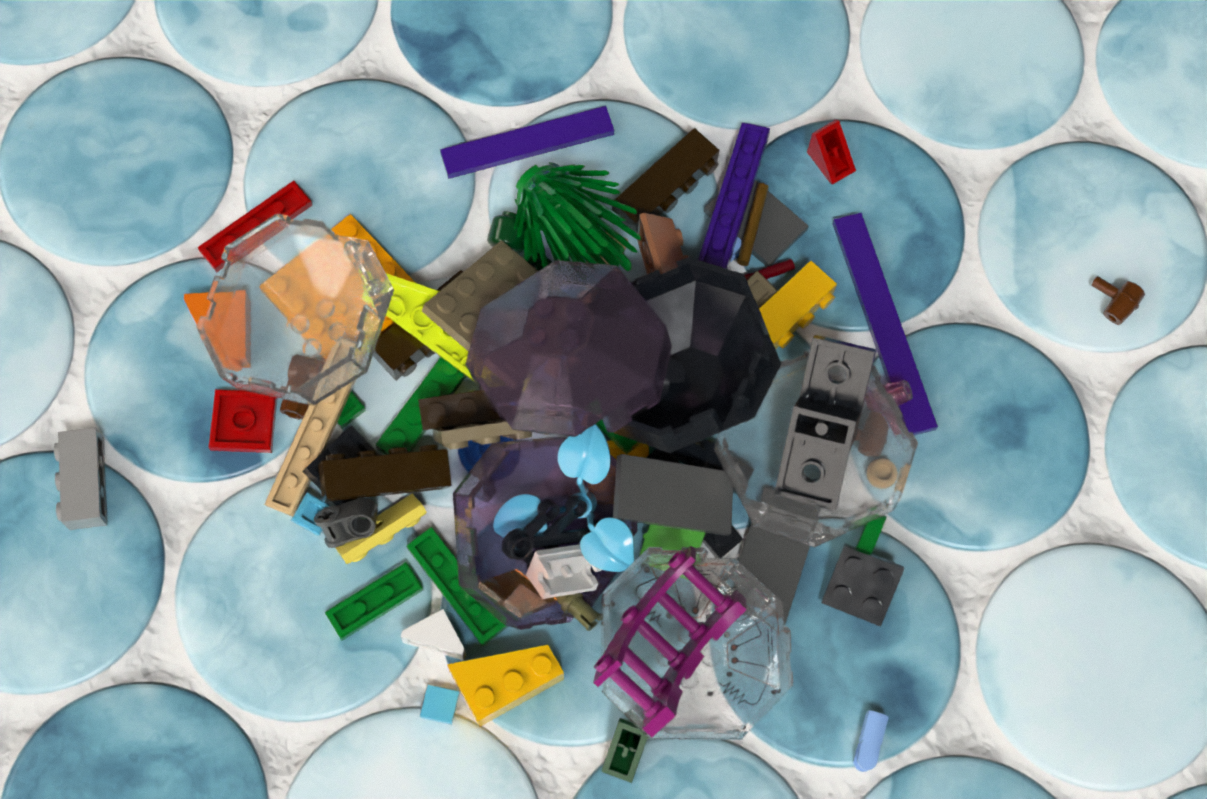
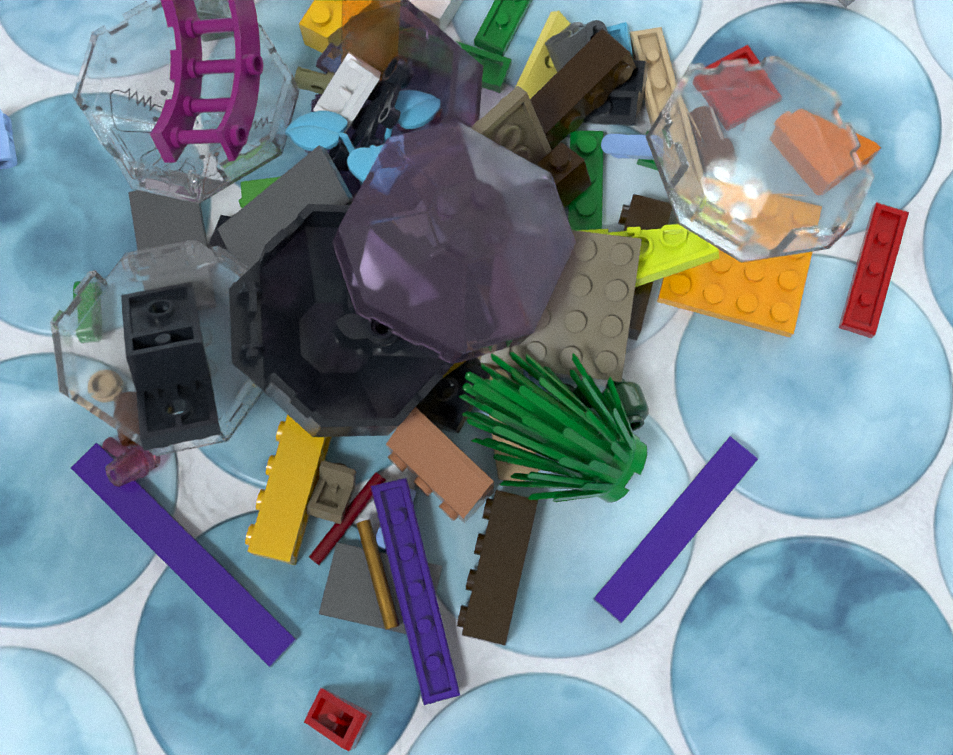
camera: 155 degrees right, 5 degrees up
(364, 411) = (626, 147): none -> light blue bar
(862, 584) = (66, 260): black plate -> none

